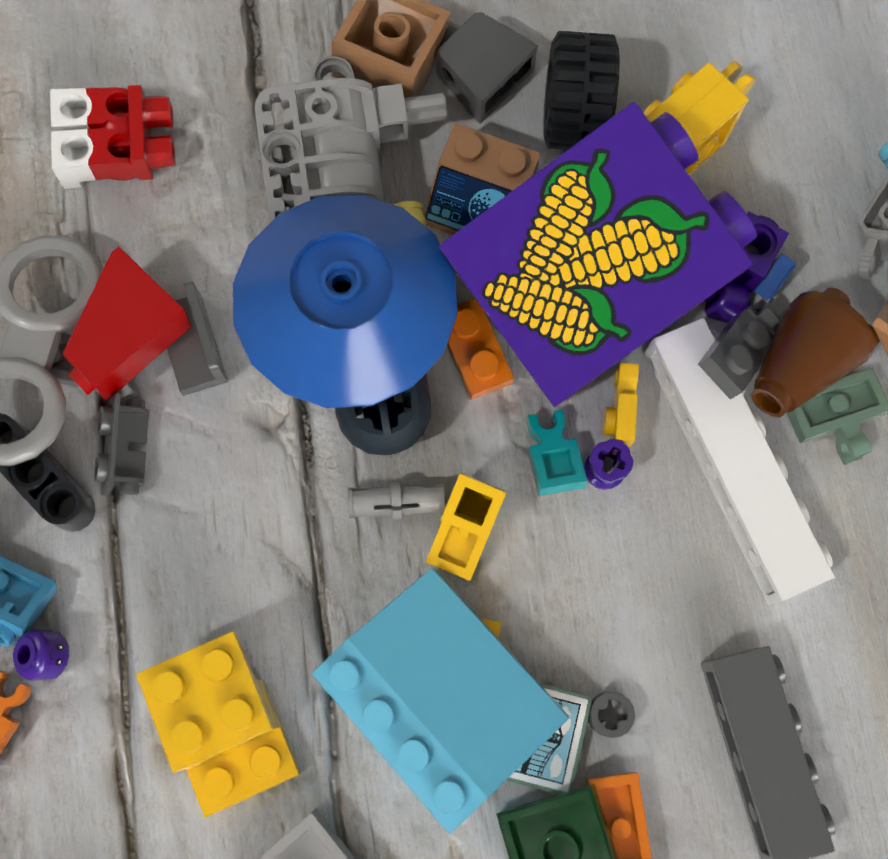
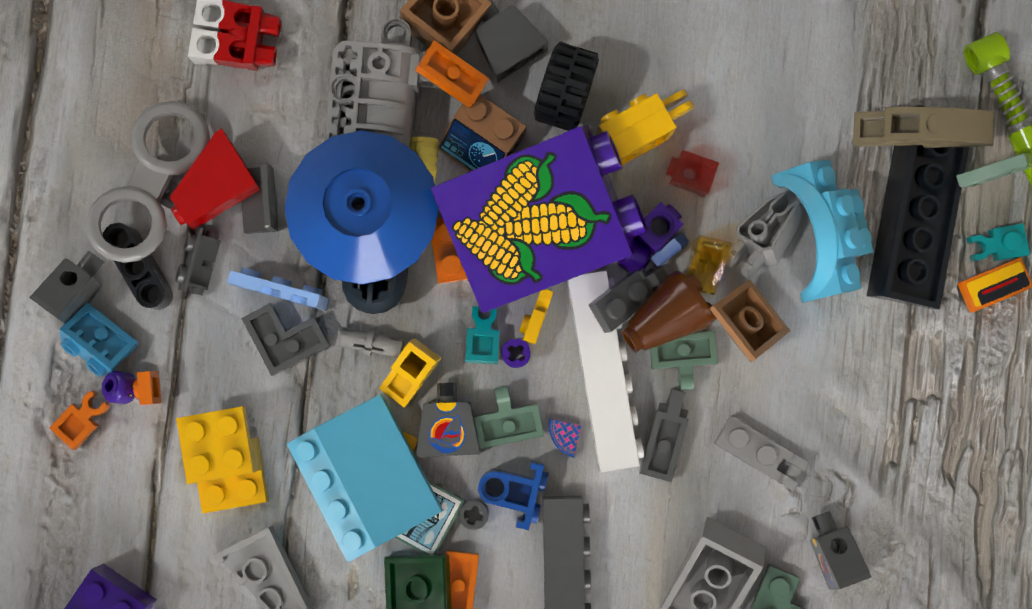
camera: 20 degrees right, 10 degrees up
(83, 645) = (147, 388): none -> orange plate
(249, 455) = (279, 288): none -> light blue wing
(267, 538) = (281, 347): none -> dark grey plate
(424, 102) = (451, 74): none -> orange plate
(540, 591) = (447, 426): none -> dark grey torso
(623, 567) = (508, 423): none -> sand green plate
(668, 663) = (518, 492): none -> blue pin
(708, 566) = (564, 436): none -> blue tile
(775, 170) = (702, 167): none -> clear red brick
(834, 264) = (708, 261): none -> clear yellow slope
(852, 531) = (665, 438): none -> dark grey hinge

